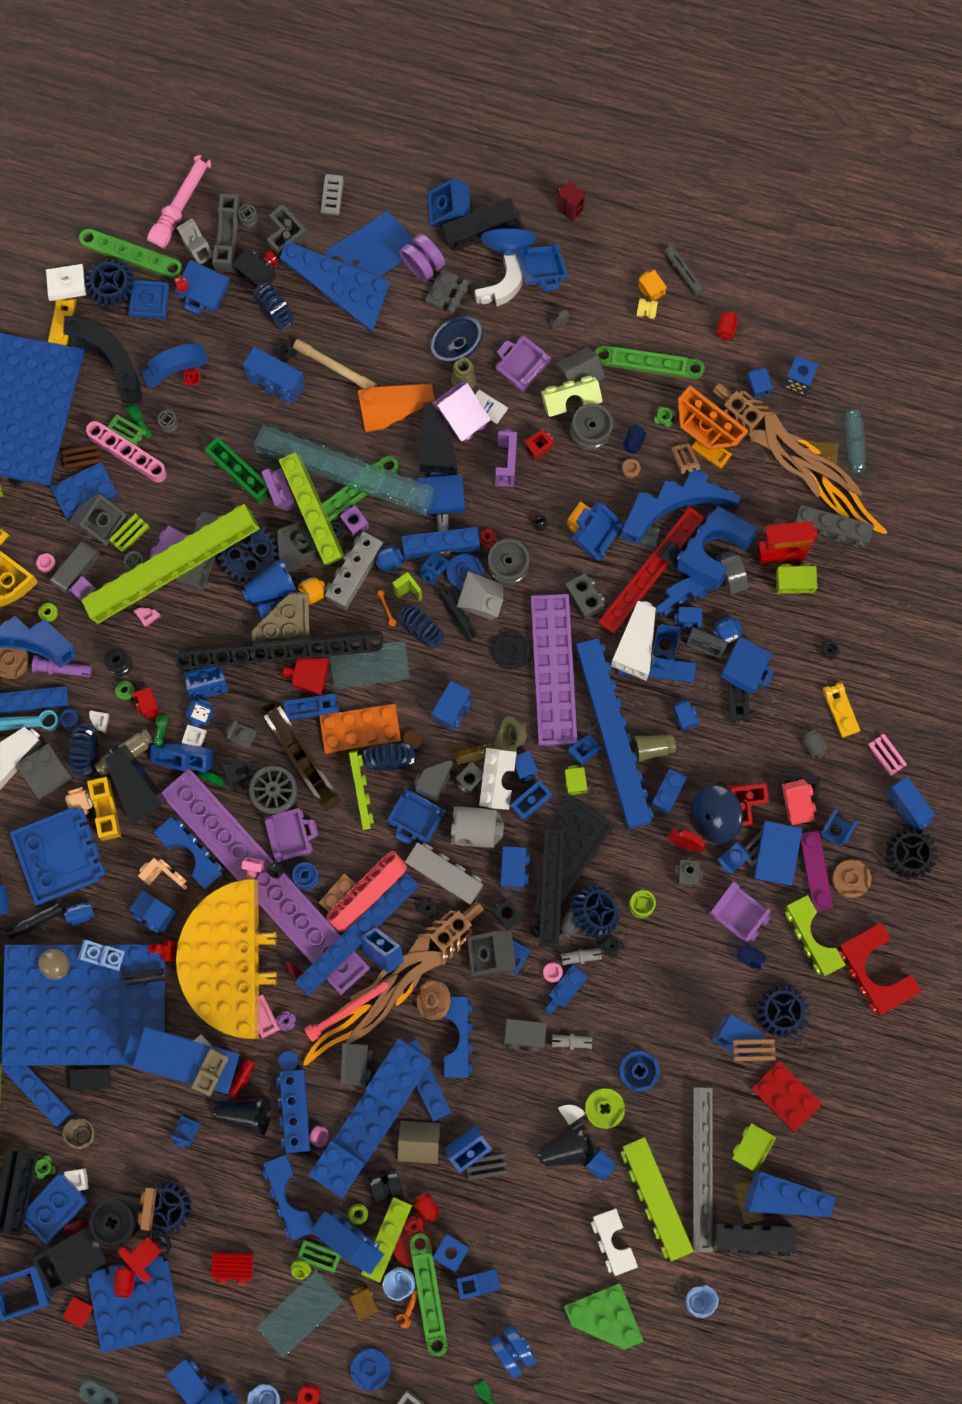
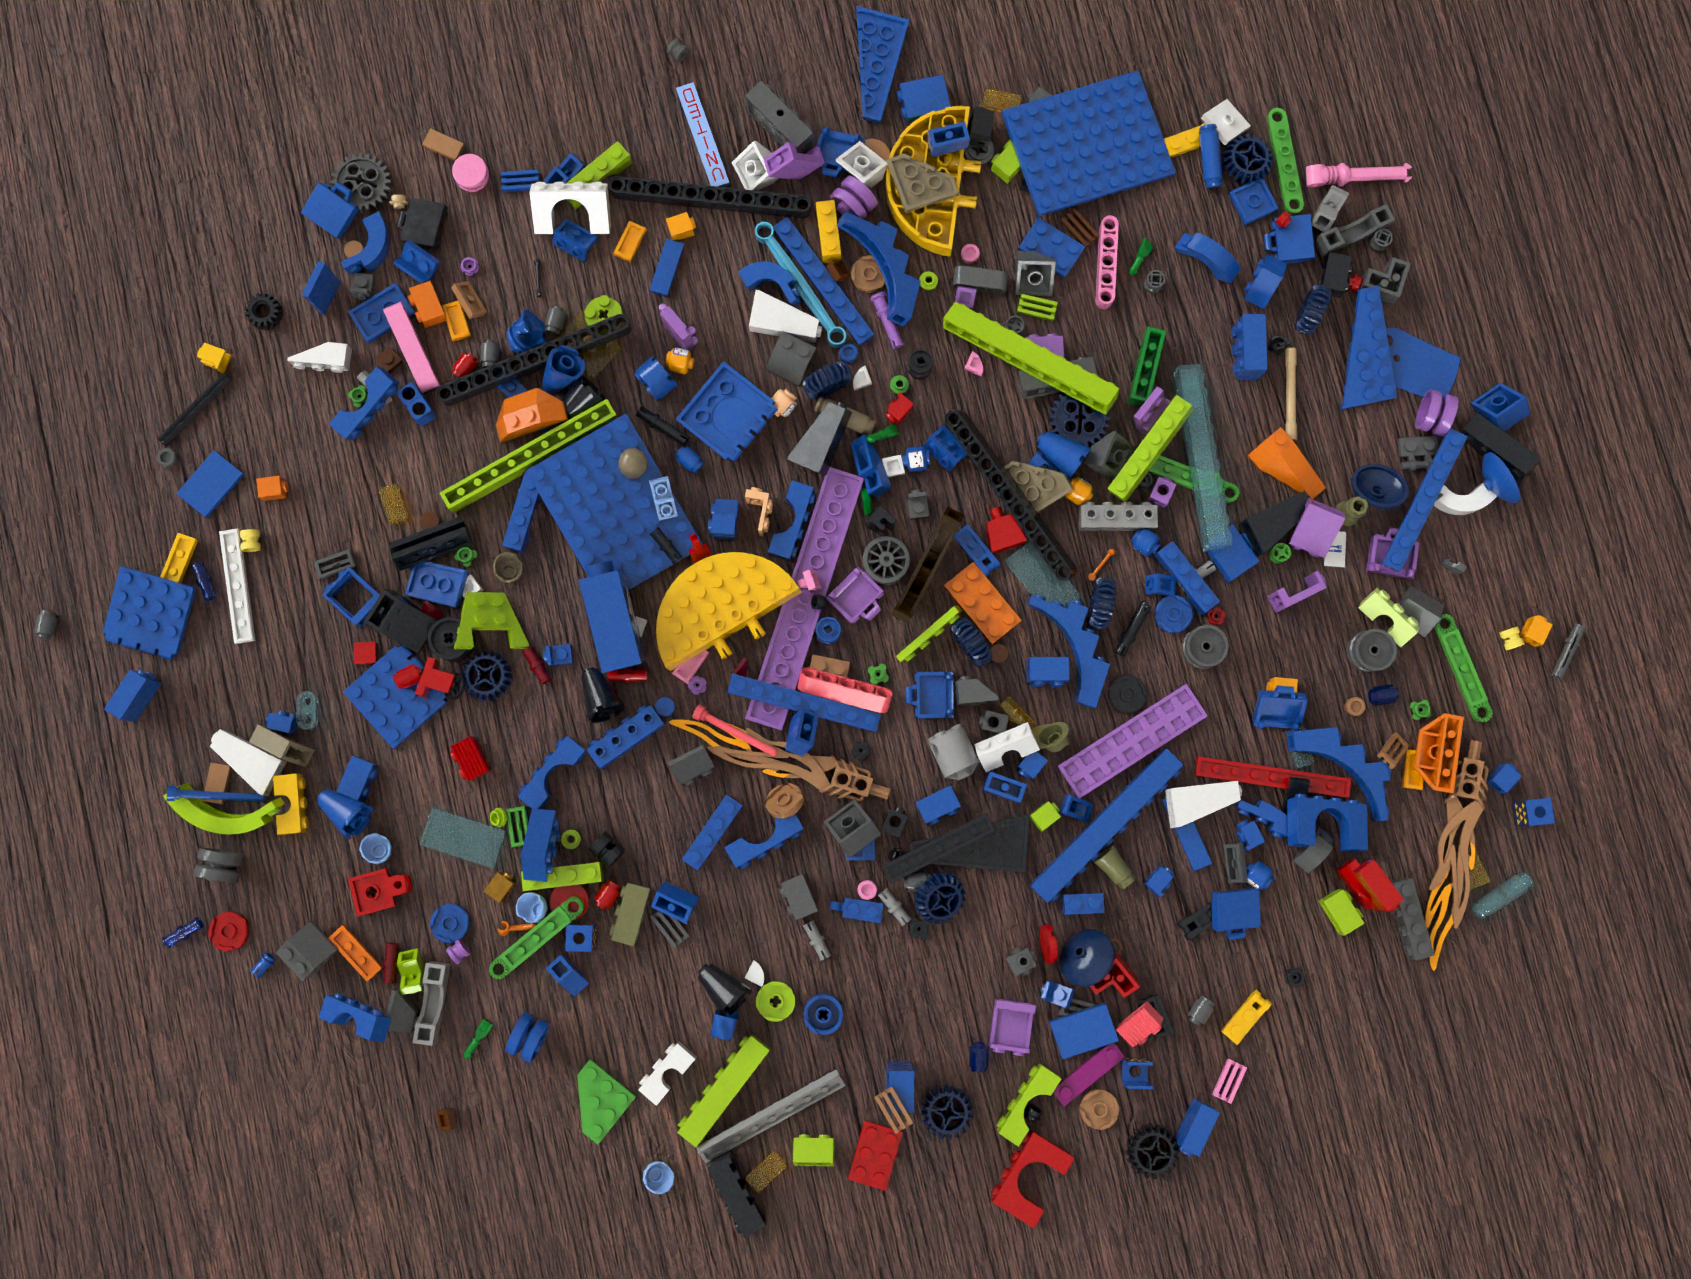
camera: 55 degrees right, 5 degrees up
(87, 310) = (1210, 156): none -> blue axle
(90, 1079) = (558, 550): black tile -> none
(101, 342) = (1189, 182): black fence -> none
(104, 804) = (797, 420): yellow arch -> none
(110, 1173) = (488, 612): none -> lime wing
(136, 437) = (1125, 263): bright green tile -> none
(146, 1218) = (467, 664): medium nougat plate -> none
(183, 1157) = (536, 665): none -> dark red pin
(195, 376) = (1206, 282): red plate -> none
(210, 1072) = (611, 647): dark tan slope -> none
(224, 328) = (1267, 278): none -> blue brick
(319, 1136) = (616, 769): bright pink tile -> none
(332, 182) = (1457, 296): light grey slope -> none
(370, 1118) = (654, 804): blue bracket -> none
(372, 860) = (874, 678): none -> bright green plate
(400, 1374) = (458, 951): none -> medium lavender wheel
(405, 584) = (1130, 568): lime panel -> none
(413, 1221) = (590, 890): red plate -> none
(418, 1142) = (659, 856): dark tan slope -> none
(419, 662) = (1070, 620): none -> blue arch
(444, 874) = (898, 748): light grey brick -> none
(455, 1196) = (630, 914): none -> olive brick
(465, 449) = (1282, 550): none -> bright green wheel
(481, 596) = (1160, 640): light grey slope -> none
(490, 310) = (1424, 500): none -> blue plate
(539, 438) = (1334, 611): red brick -> none
(542, 266) = (1493, 523): blue piece -> none
(542, 525) = (1254, 656): black hinge -> none
(570, 200) = (1571, 513): dark red brick -> none
(581, 597) = (1210, 728): dark grey brick -> none
(642, 904) = (969, 935): lime wheel -> none
(665, 632) = (1225, 826): blue piece -> none
(727, 326) = (1539, 719): red brick -> none
(780, 1196) = (783, 1197): blue wedge -> none
(824, 937) = (1032, 1113): none -> black plate

